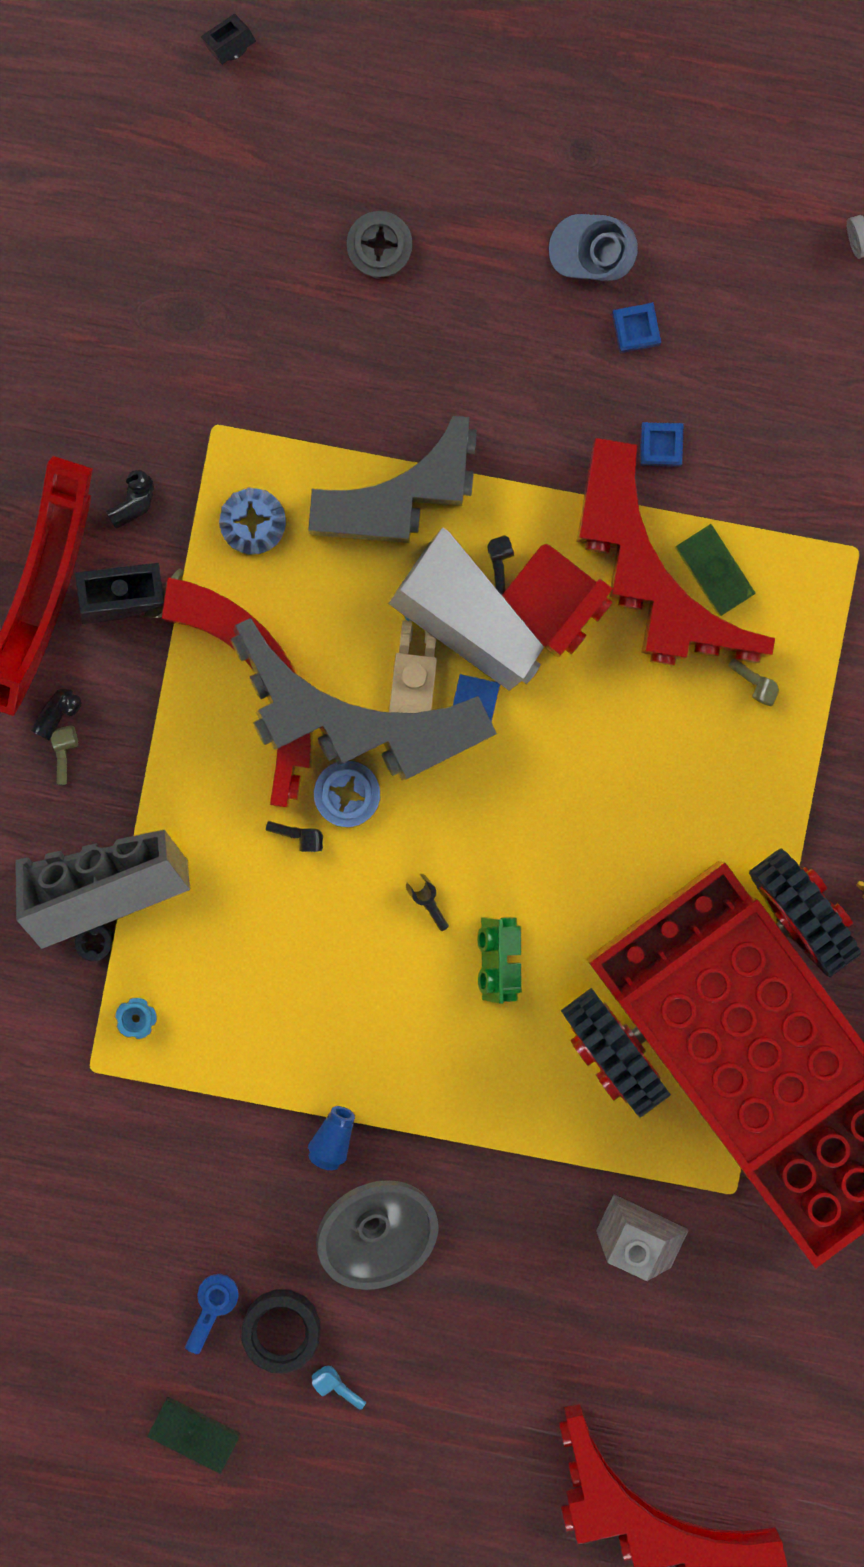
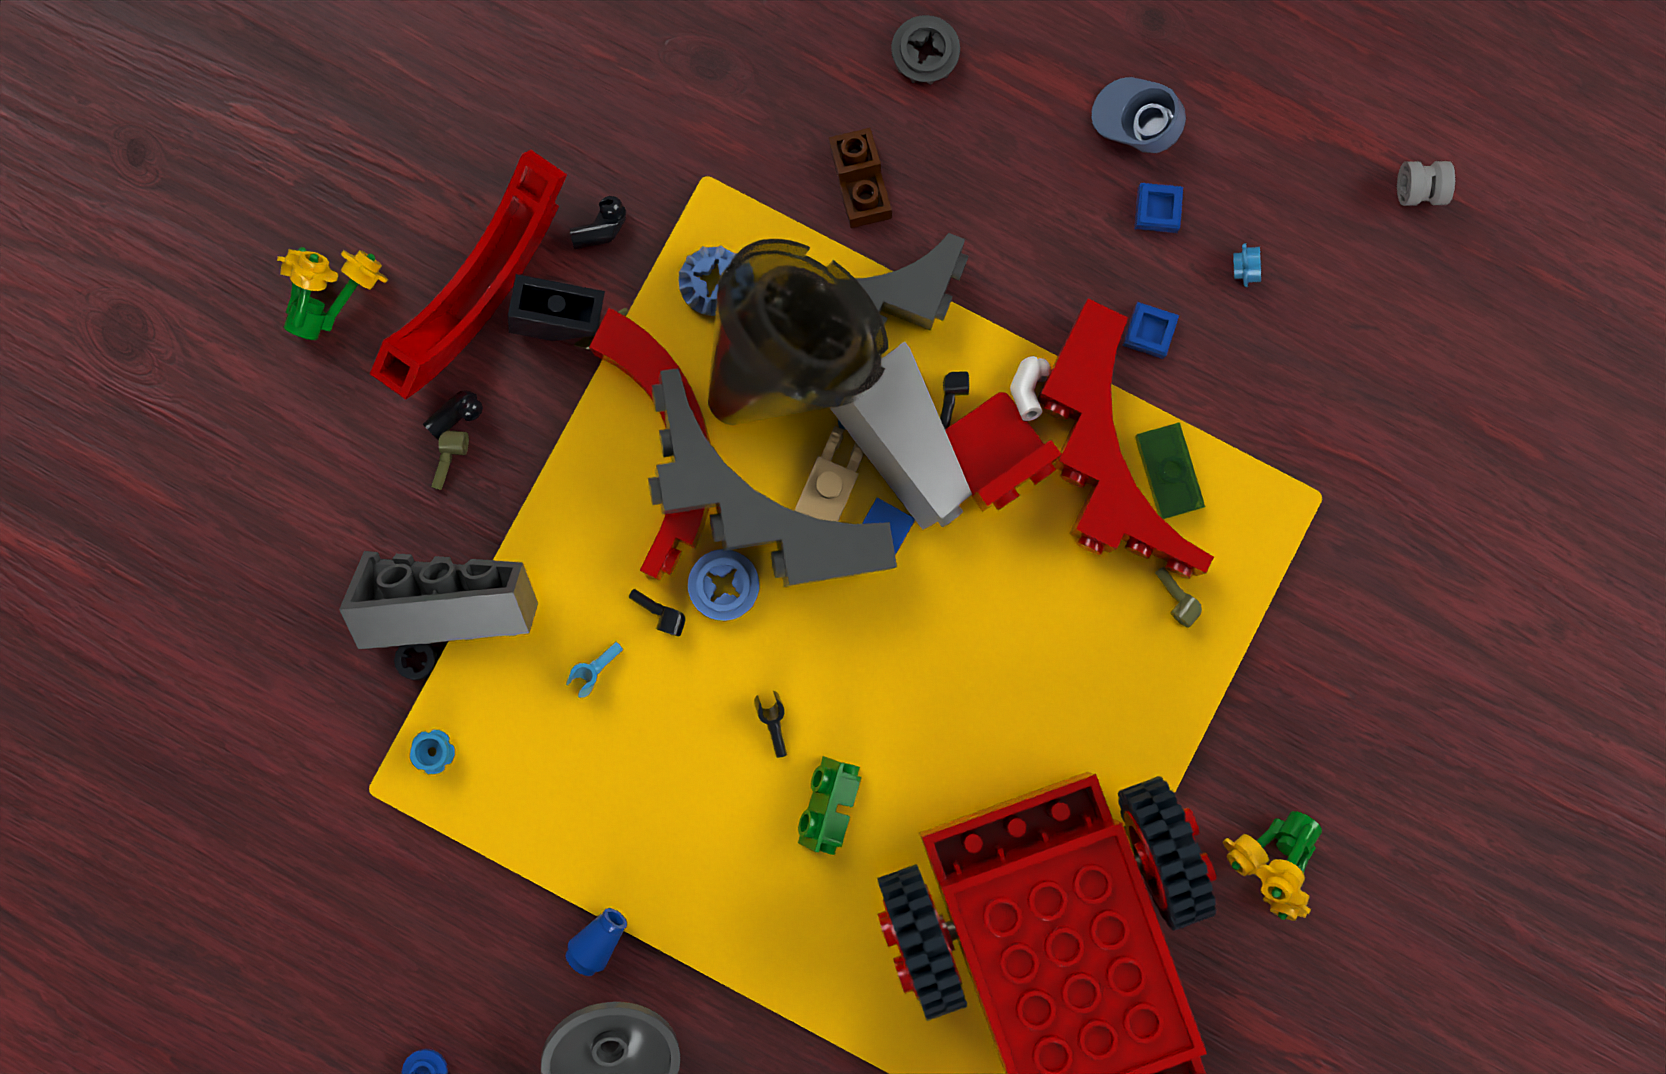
camera: 15 degrees right, 5 degrees down
(252, 906) = (590, 671): none -> dark azure hand
(342, 557) = (790, 335): none -> clear smoke cone
(355, 383) = (860, 177): none -> reddish brown slope
(562, 521) = (1024, 382): none -> white arm
(732, 357) = (1247, 265): none -> dark azure plate

